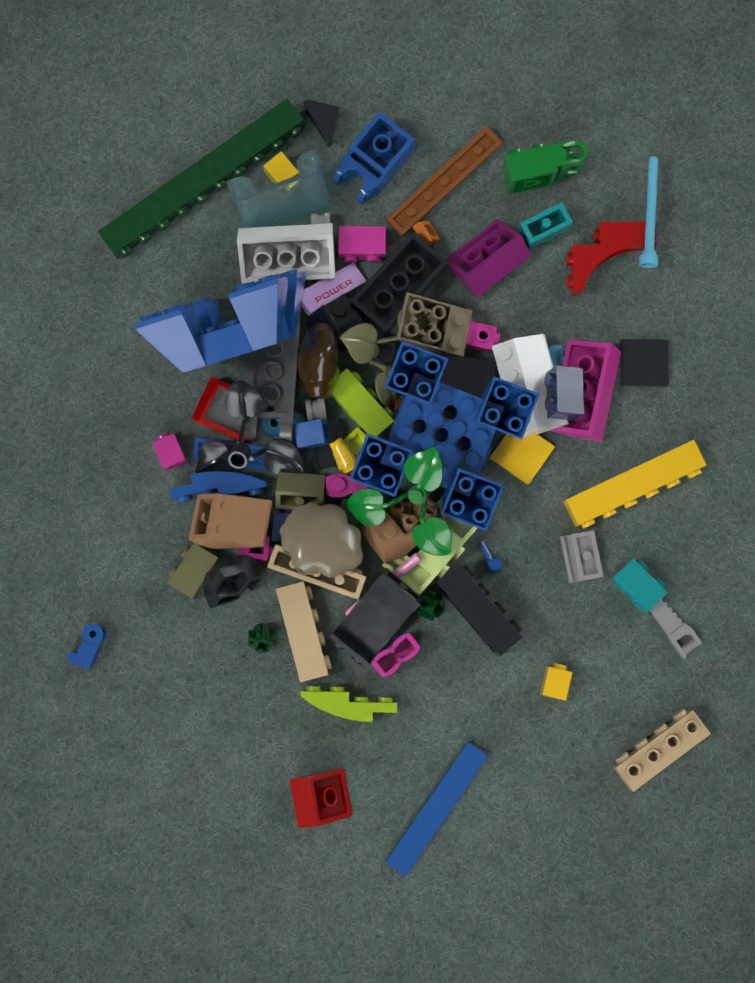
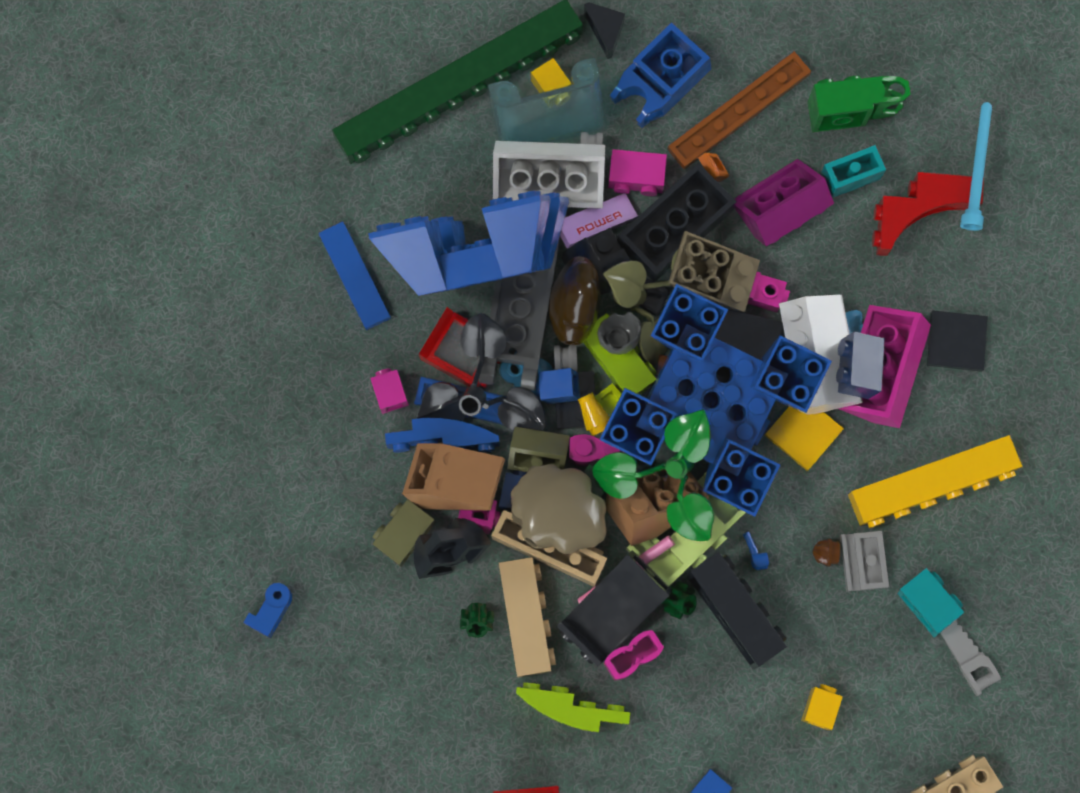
camera: 10 degrees right, 5 degrees down
(130, 355) = (354, 275): none -> blue tile
(359, 385) = (619, 333): none -> dark grey hair
(549, 552) = (827, 552): none -> reddish brown plate

